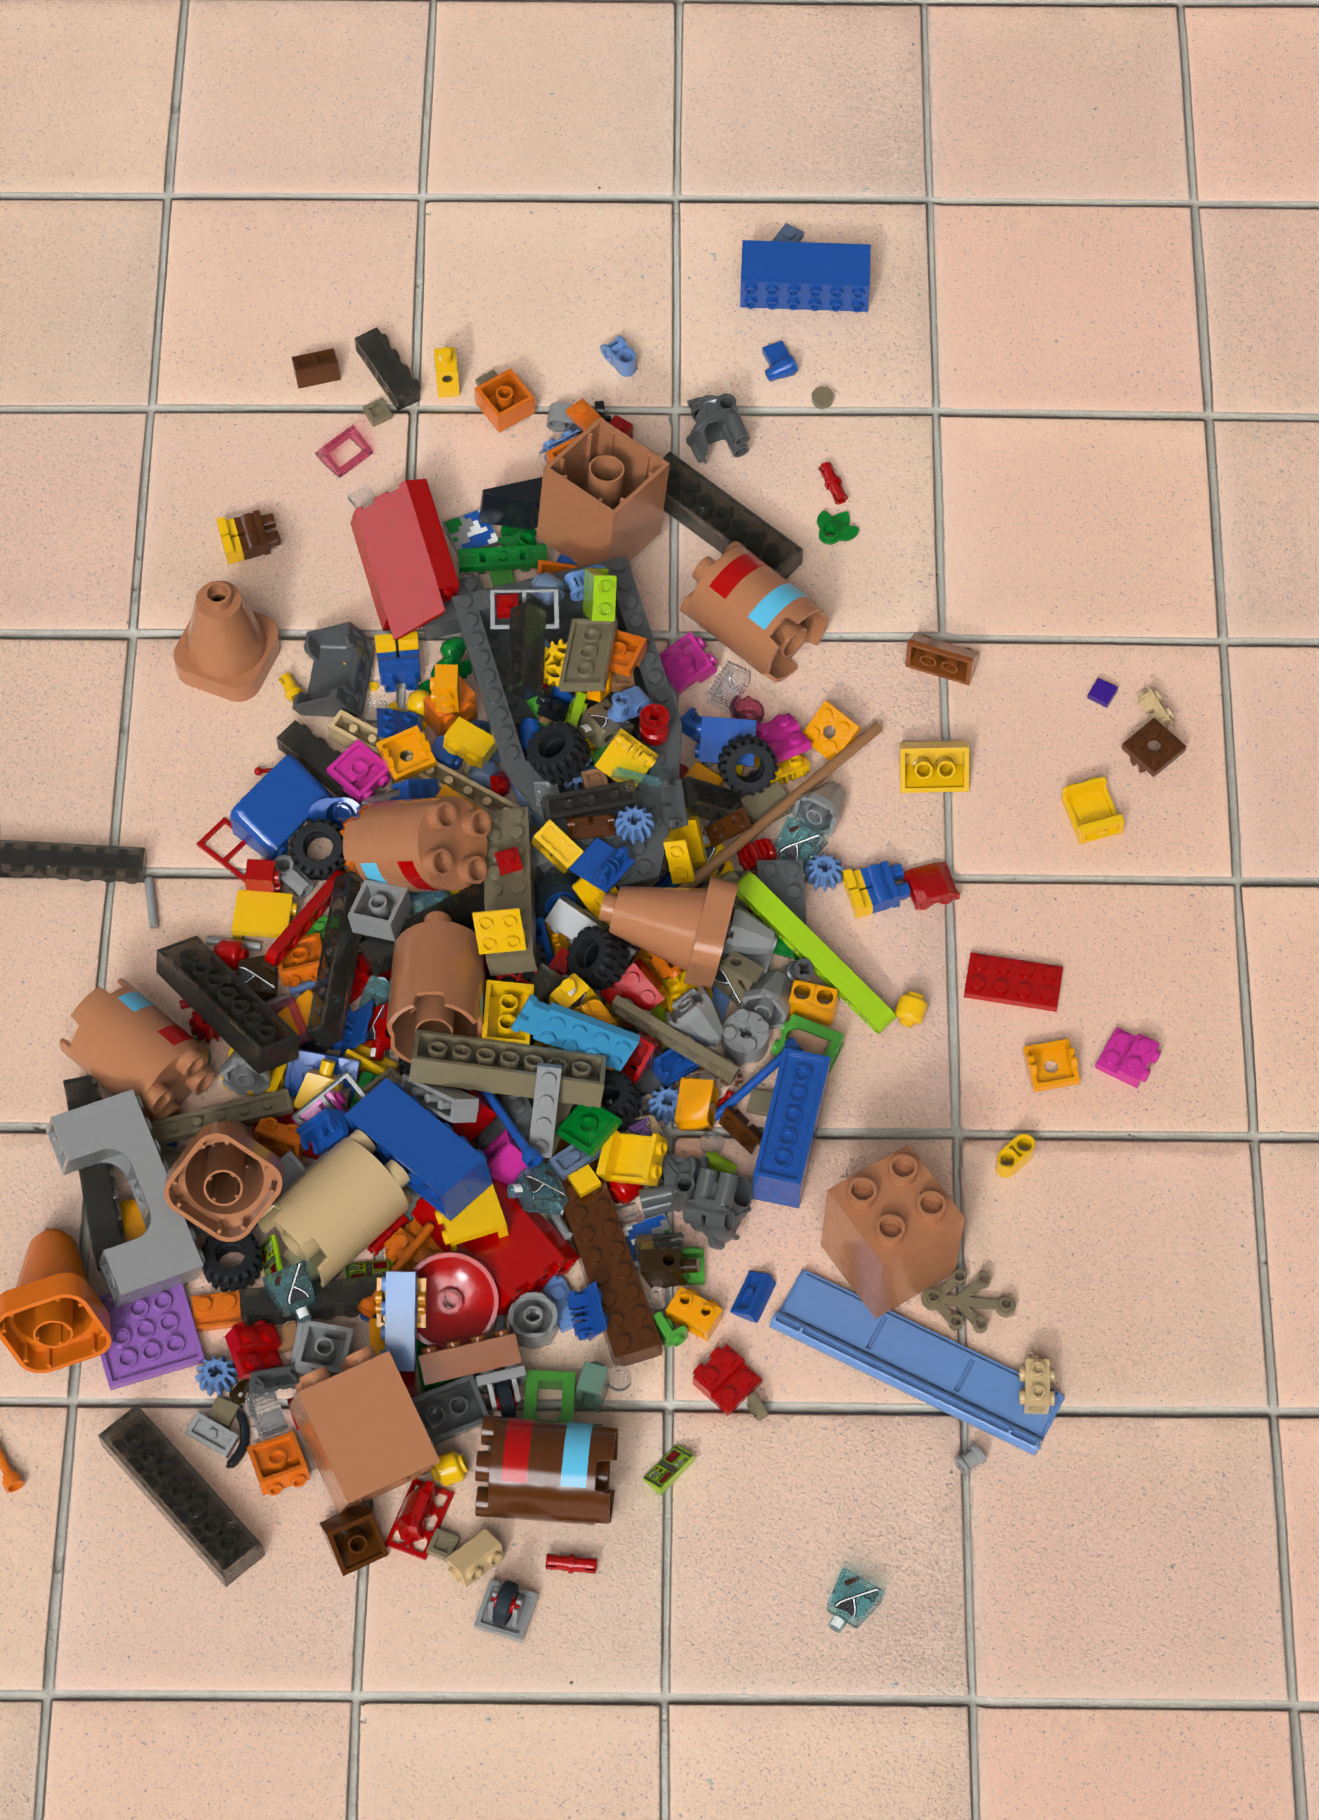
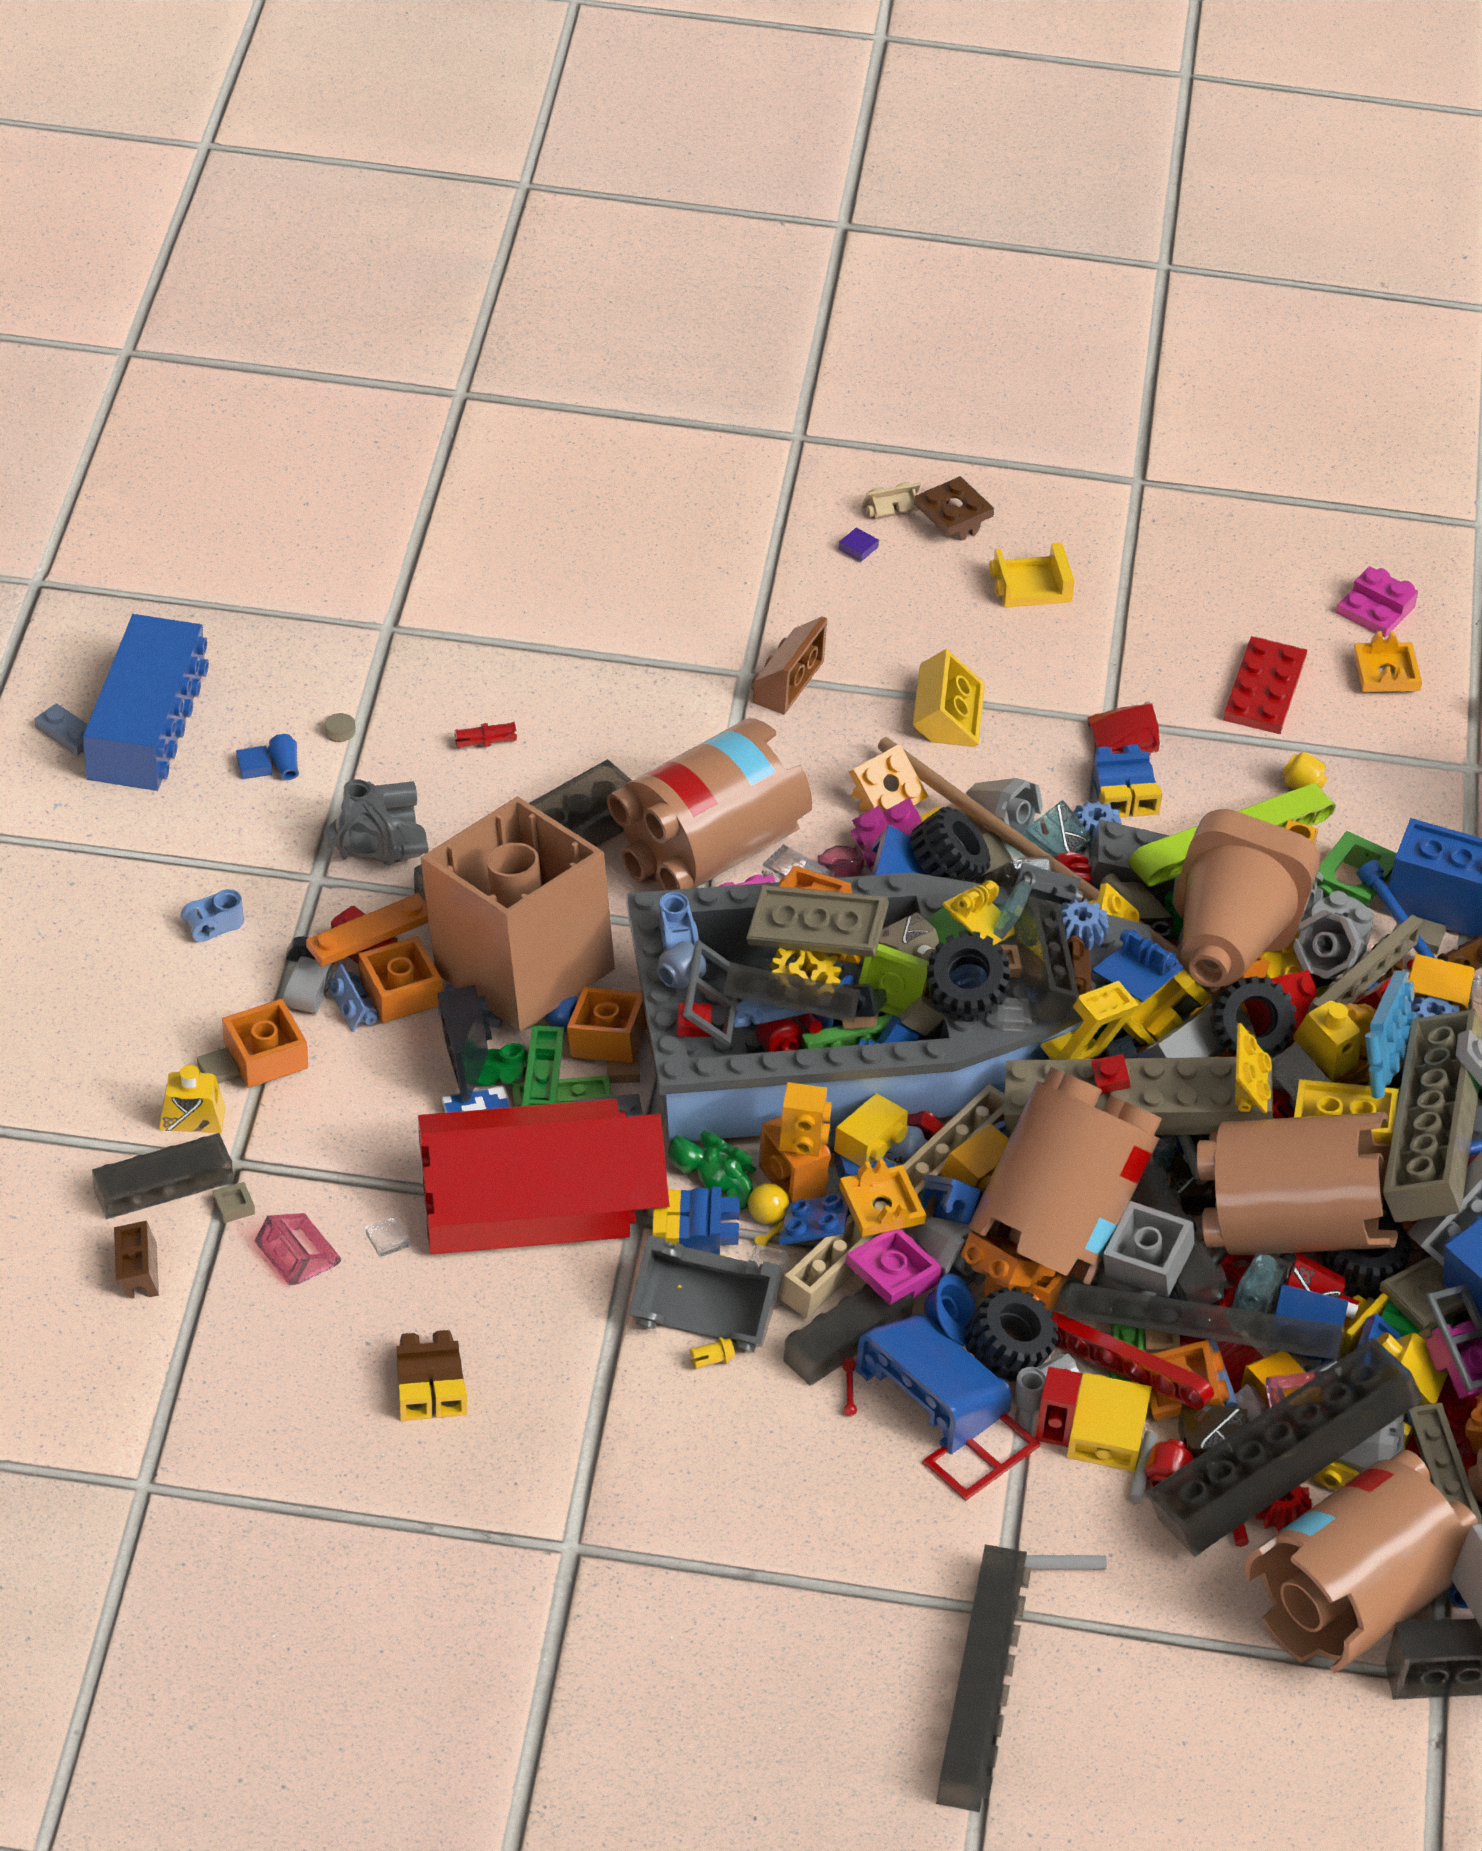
camera: 85 degrees left, 15 degrees down
(226, 644) = (638, 1405): nougat cone -> none
(599, 594) = (727, 893): lime panel -> none
(628, 704) = (898, 915): medium blue piece -> none
(654, 724) = (928, 880): red wheel -> none
(836, 526) = (557, 746): green plate -> none

